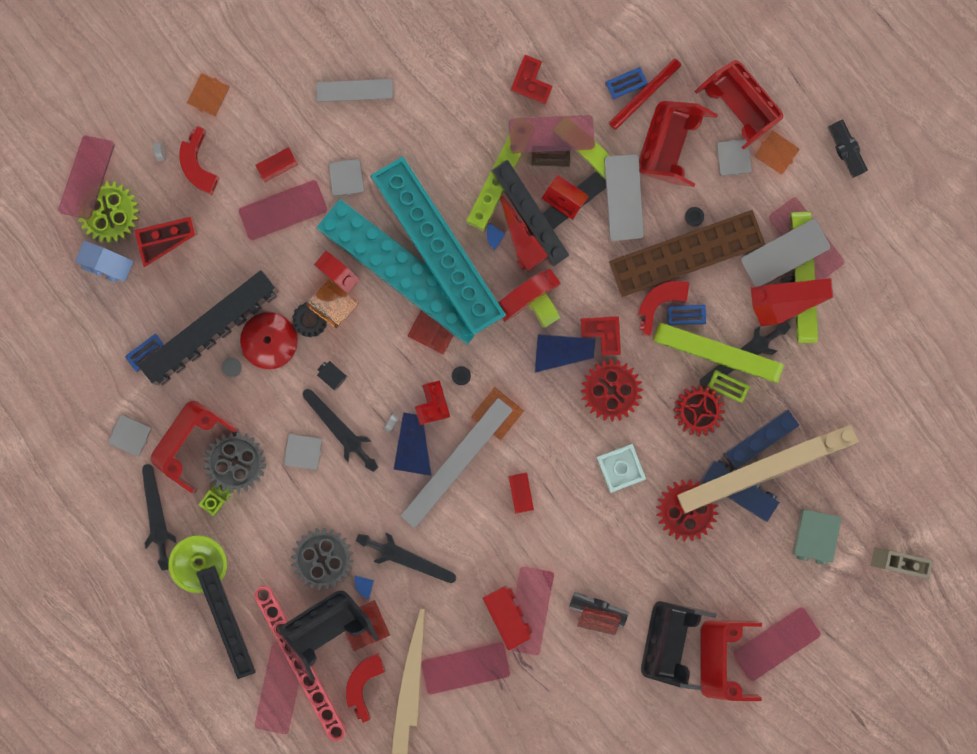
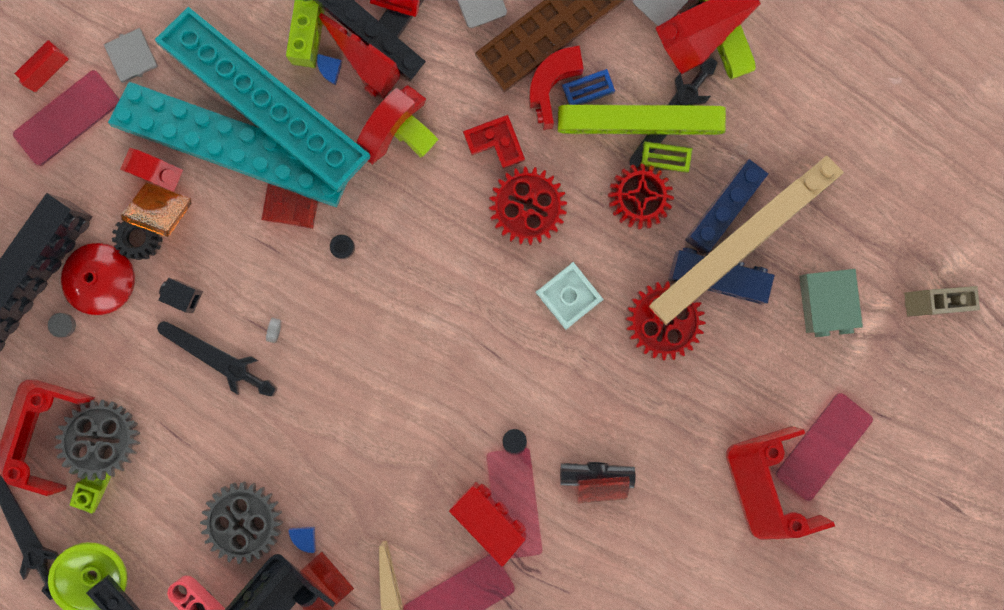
camera: 15 degrees left, 0 degrees up
(303, 451) = (180, 399): light grey piece -> none
(394, 553) = (338, 487): black sword -> none
(412, 447) = (307, 349): clear blue wedge -> none
(436, 405) = (321, 292): red plate -> none
(456, 463) = (368, 353): light grey tile -> none
(509, 421) = (399, 278): clear orange tile -> none
(521, 493) = (457, 364): red panel -> none
(544, 564) = (514, 441): none -> black tile
(561, 351) = (453, 177): clear blue wedge -> none
(666, 643) = (692, 492): black windscreen -> none

